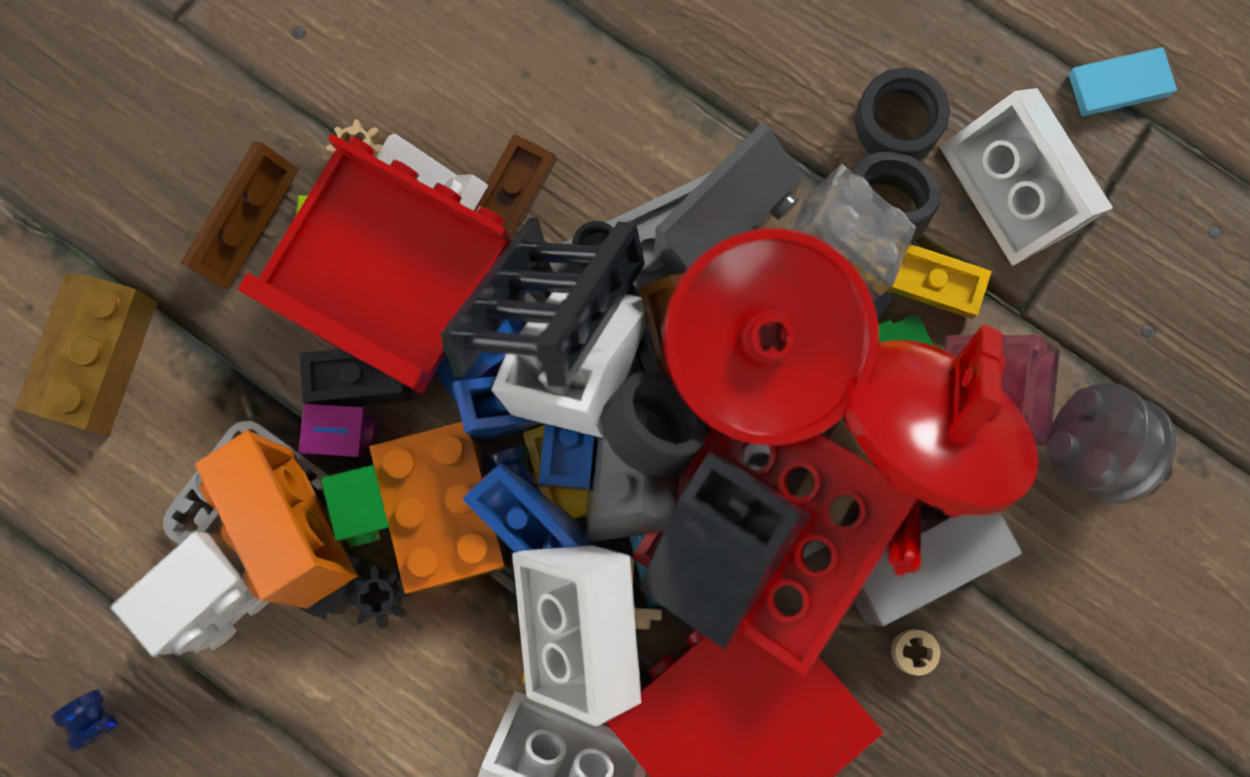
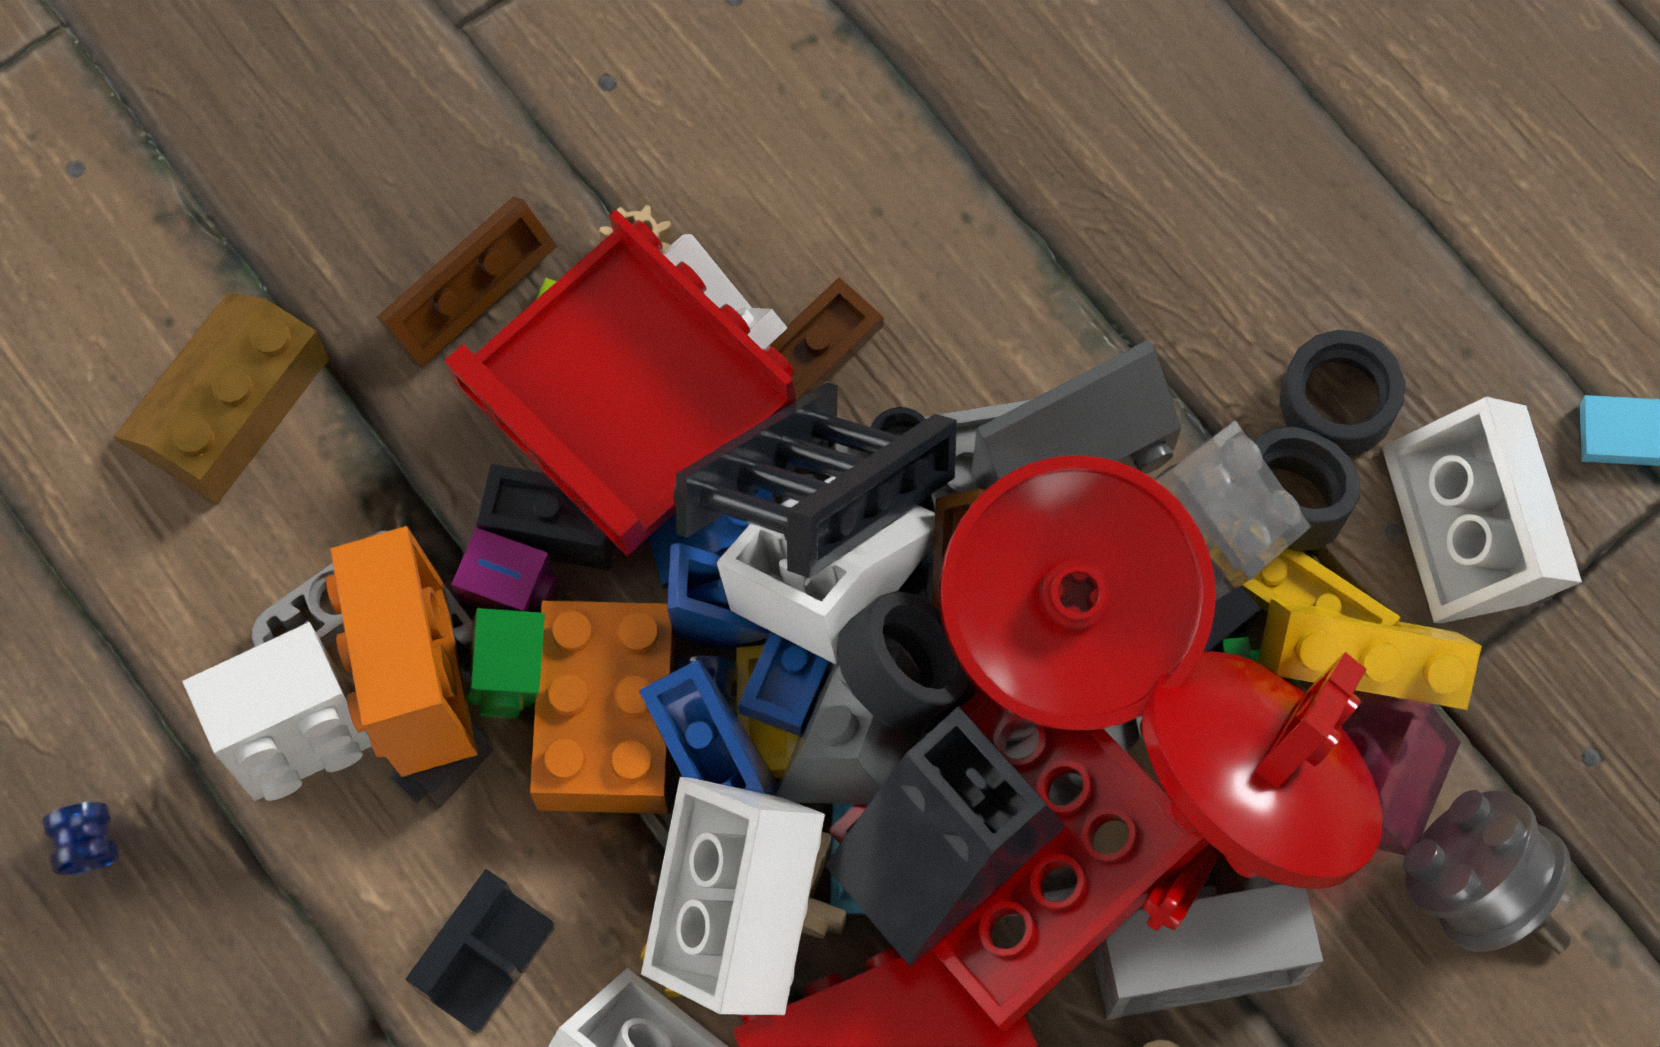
camera: 15 degrees right, 10 degrees down
(370, 586) = (482, 782): black gear -> none
(406, 714) = (480, 952): none -> black panel
(953, 313) = (1399, 659): none -> yellow arch

